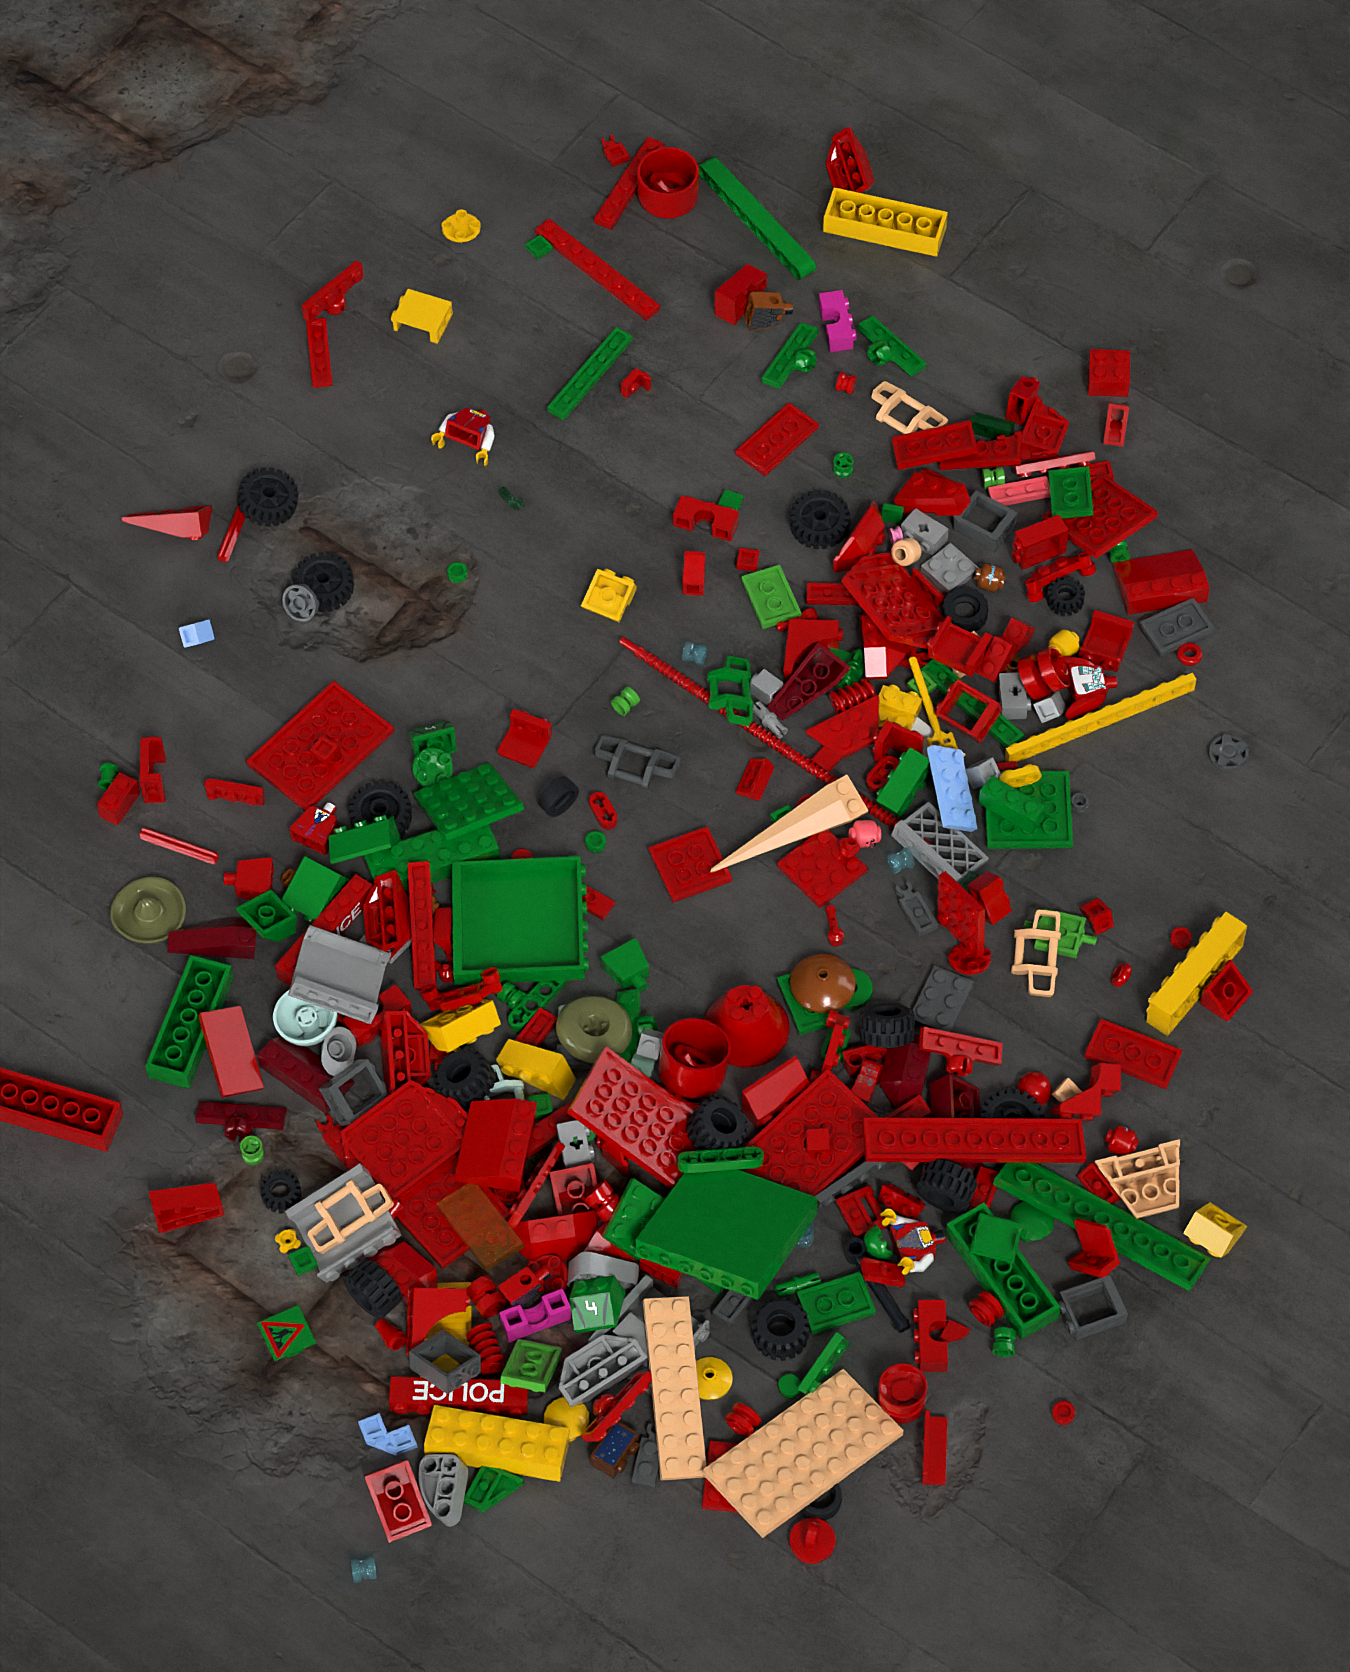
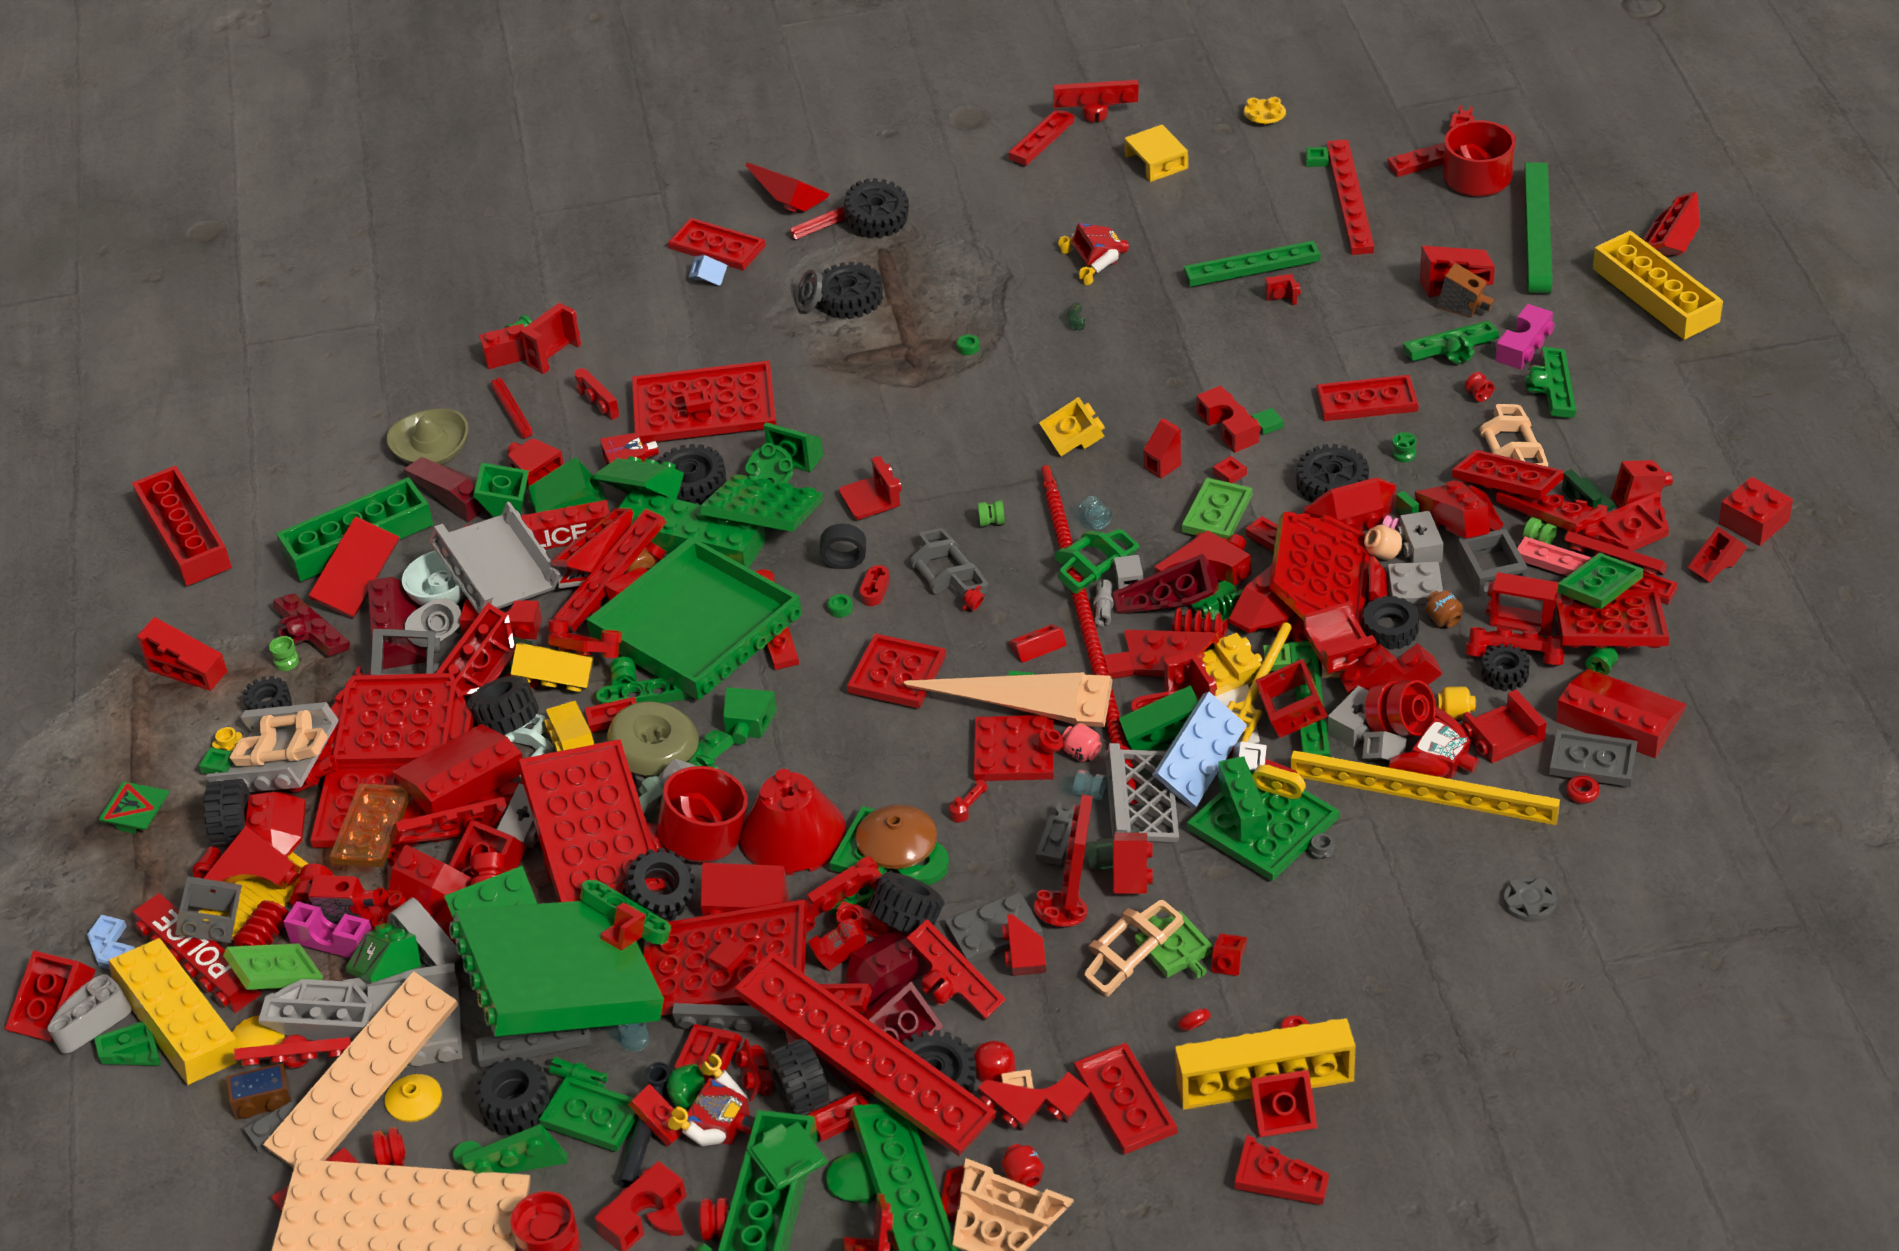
camera: 45 degrees right, 15 degrees down
(171, 604) = (717, 242): none -> red tile
(683, 776) = (973, 598): none -> red plate
(739, 1170) = (626, 928): none -> red panel
(981, 1001) = (1026, 948): none -> red slope
(1261, 1038) = (1273, 1174): none -> red wing

